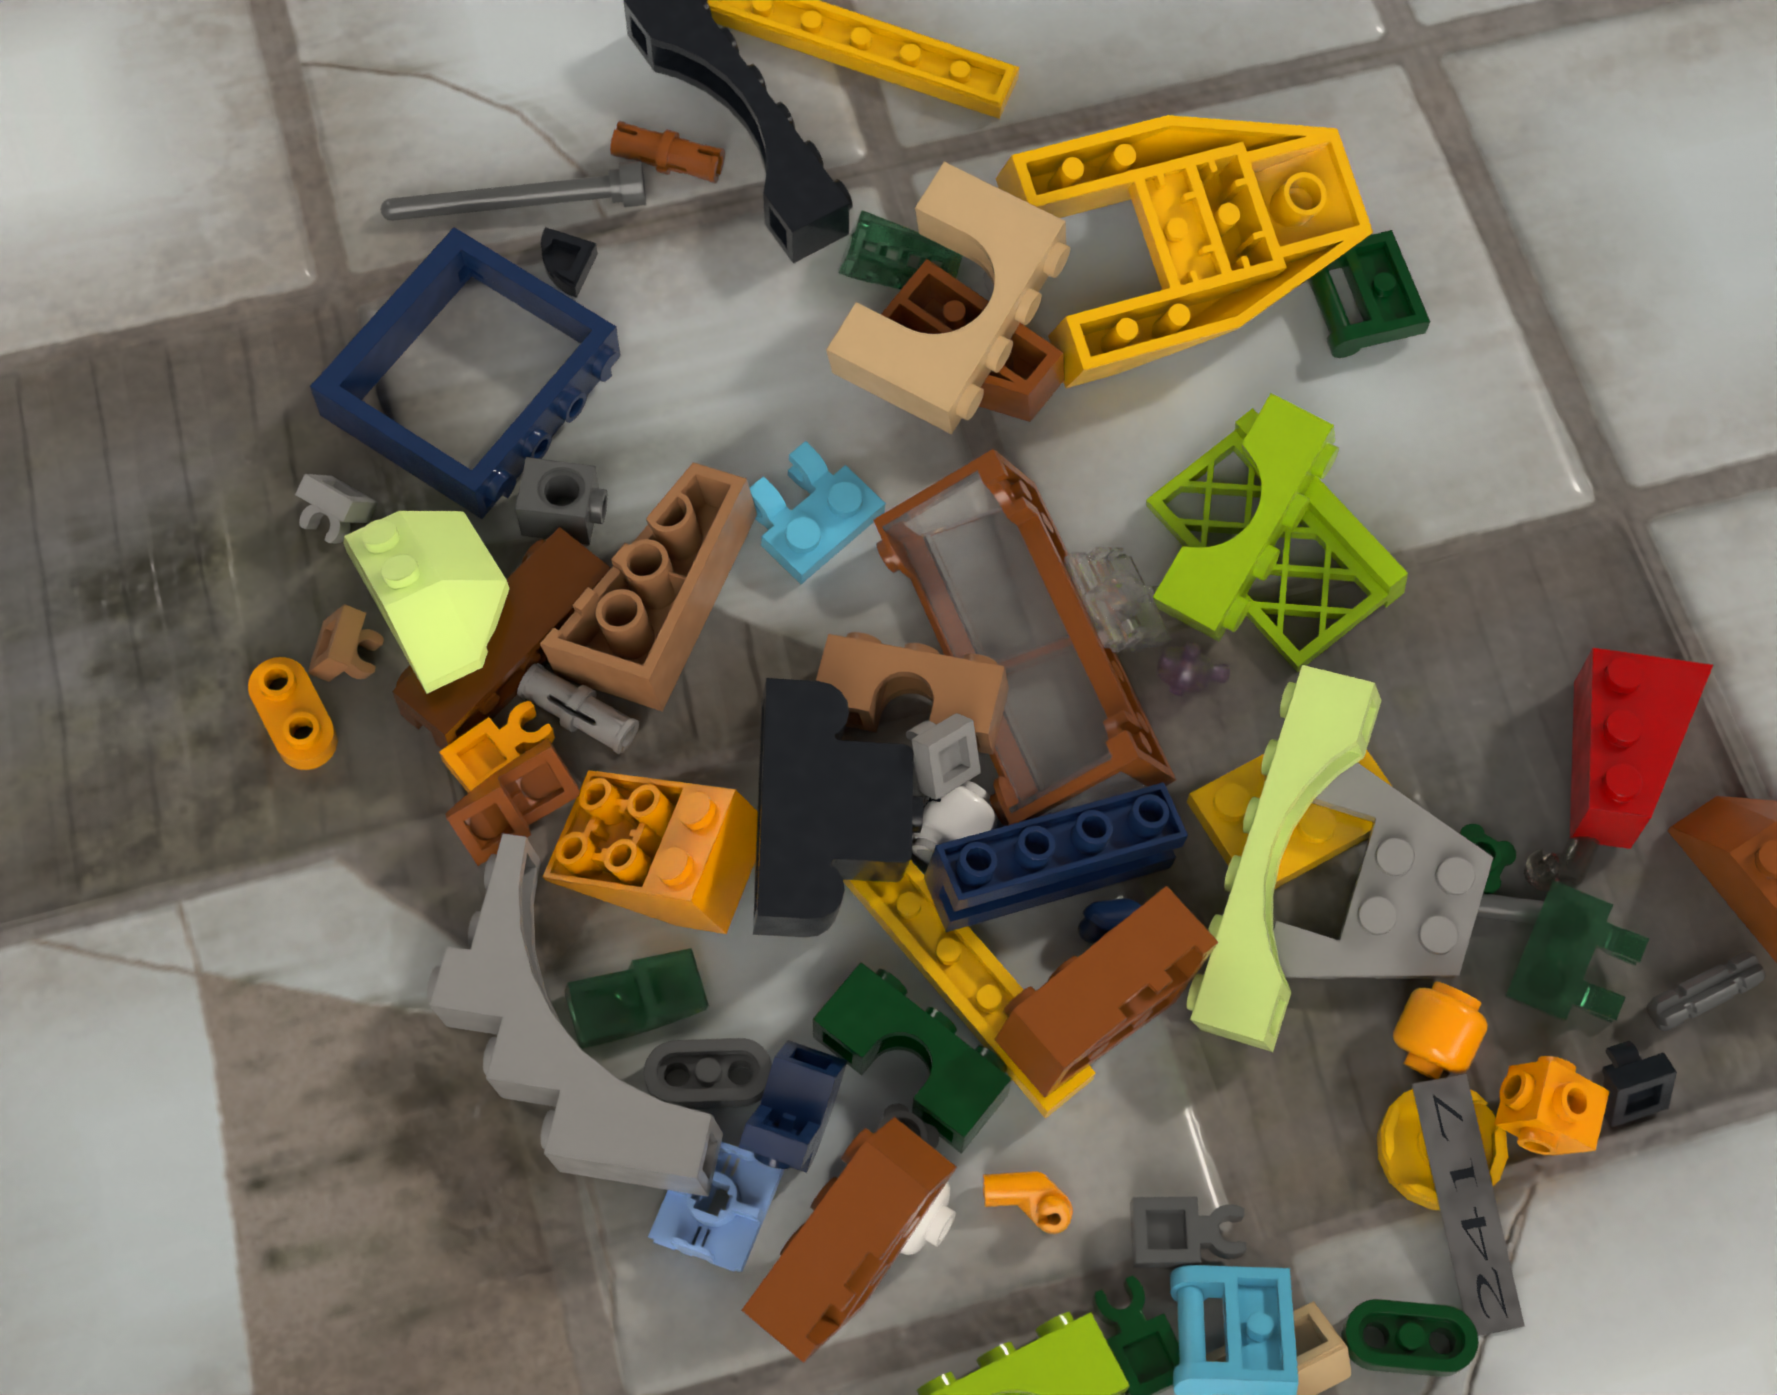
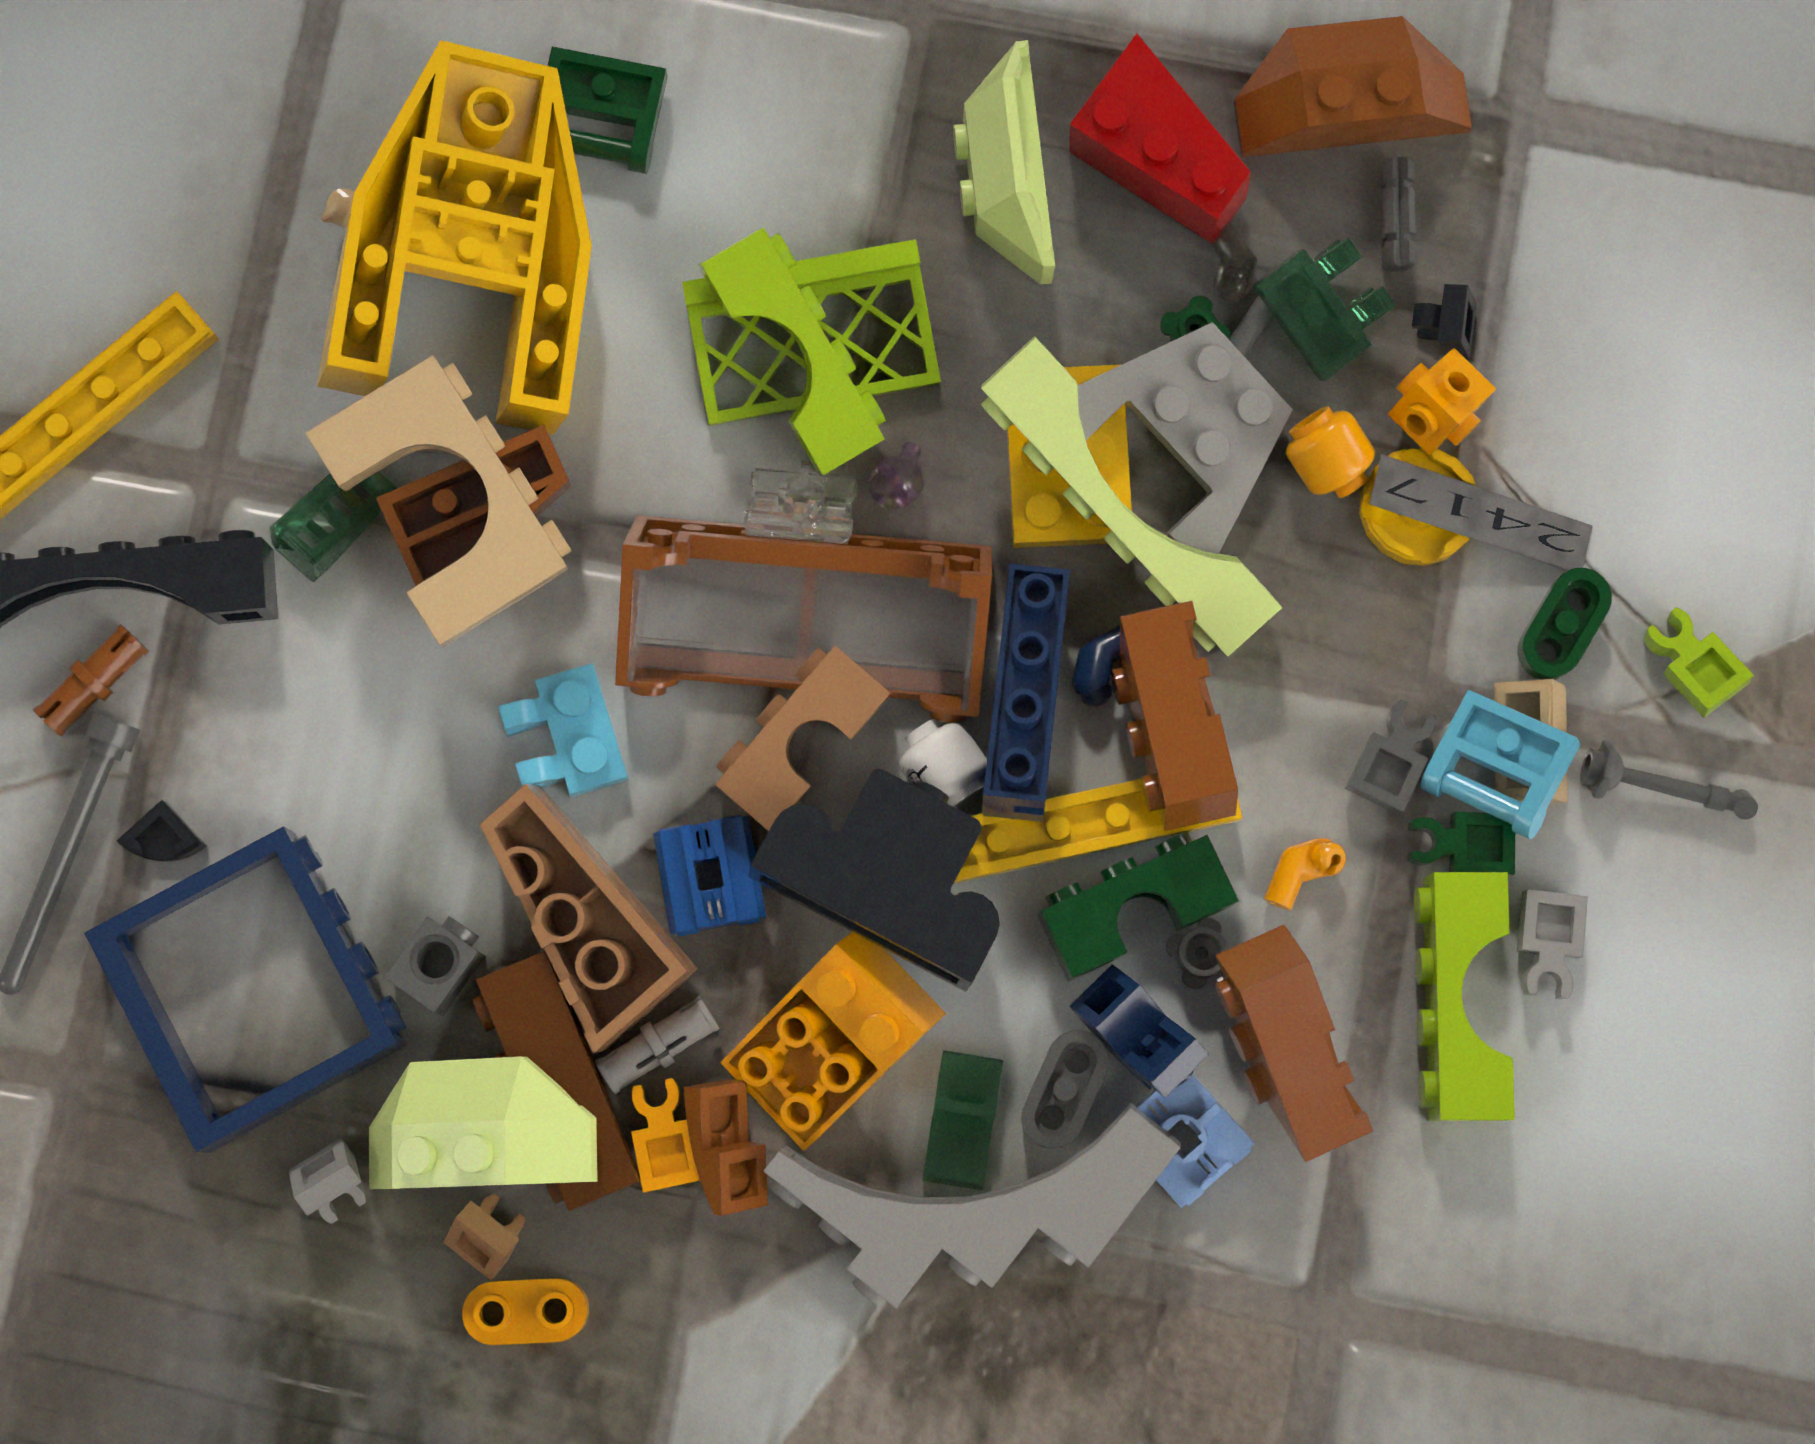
camera: 65 degrees left, 15 degrees up
(716, 676) = (697, 910): none -> blue piece
(944, 754) = (889, 742): light grey tile -> none
(1529, 623) = (1006, 166): none -> yellowish green wedge

